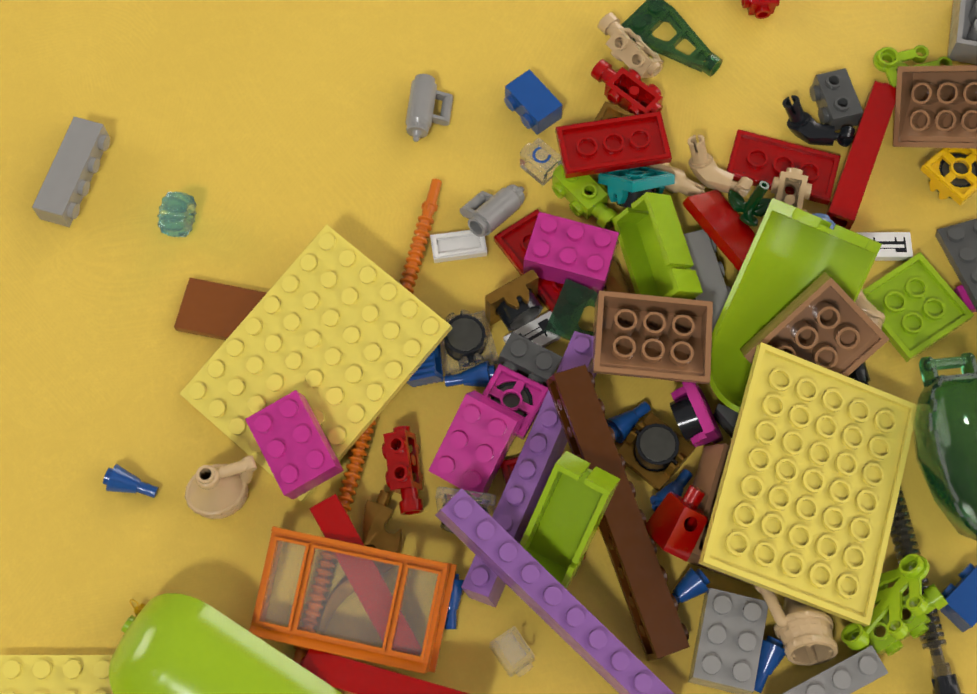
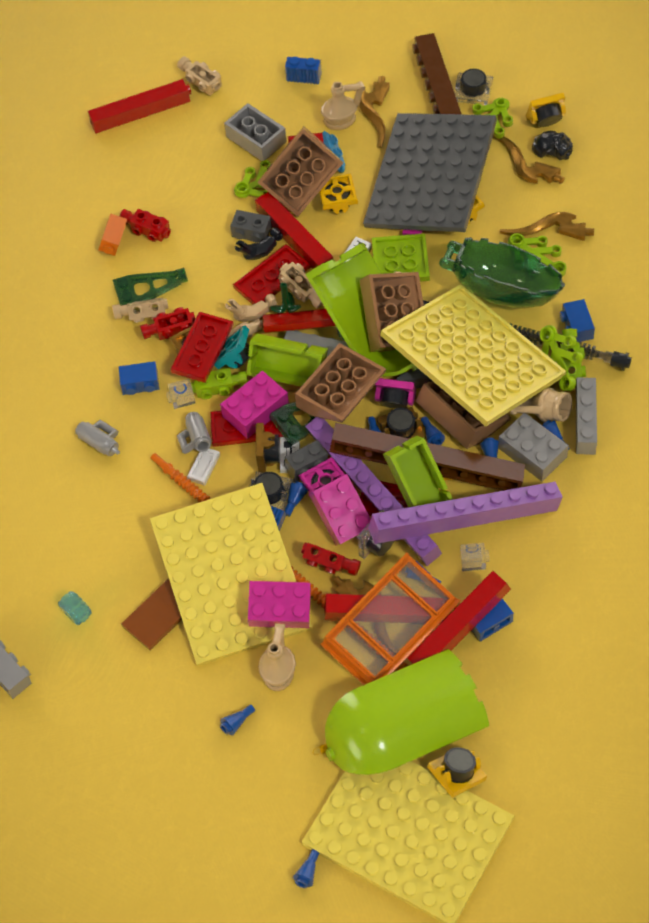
camera: 55 degrees left, 10 degrees down
(678, 522) = (453, 430): red torso -> none

